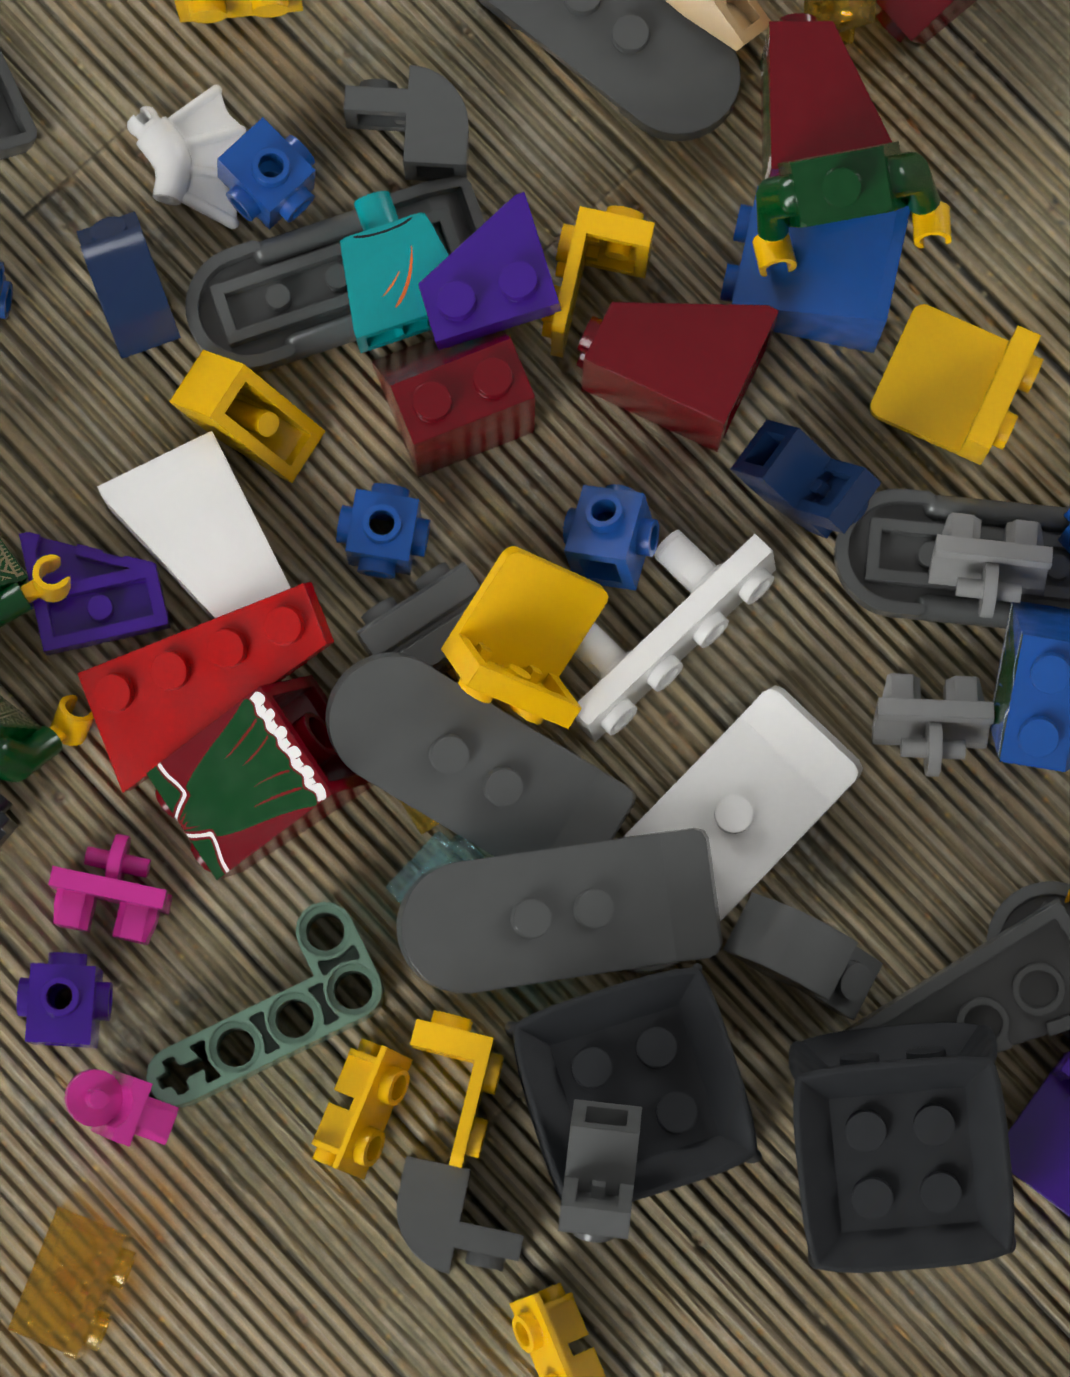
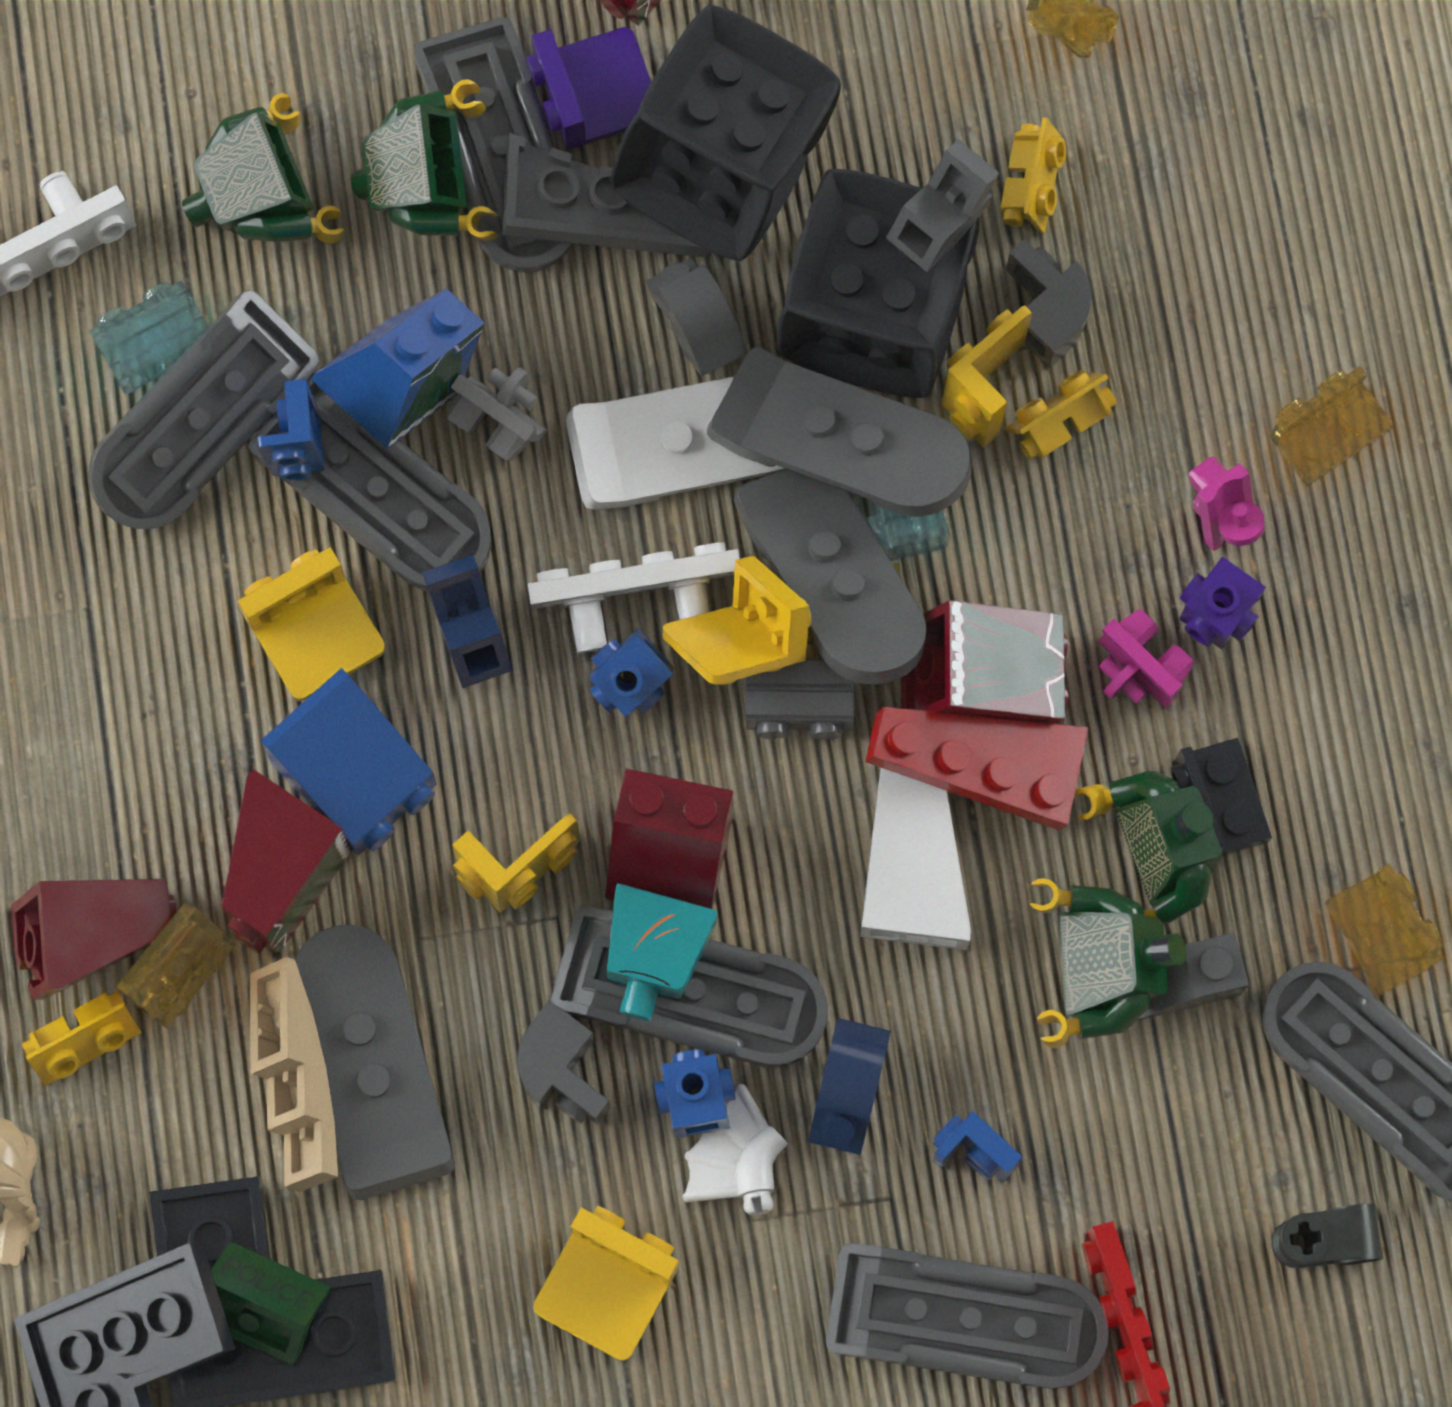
camera: 145 degrees left, 5 degrees down
(106, 600) = (1002, 870): dark purple wing -> none
(247, 414) = (827, 933): yellow slope -> none
(262, 1018) = (1091, 513): sand green beam -> none
(389, 553) = (781, 799): blue brick -> none
(491, 280) = (595, 881): dark purple wing -> none
(677, 362) = (497, 754): dark red slope -> none
(845, 188) = (309, 763): dark green torso -> none
(990, 567) = (366, 463): light grey hips -> none

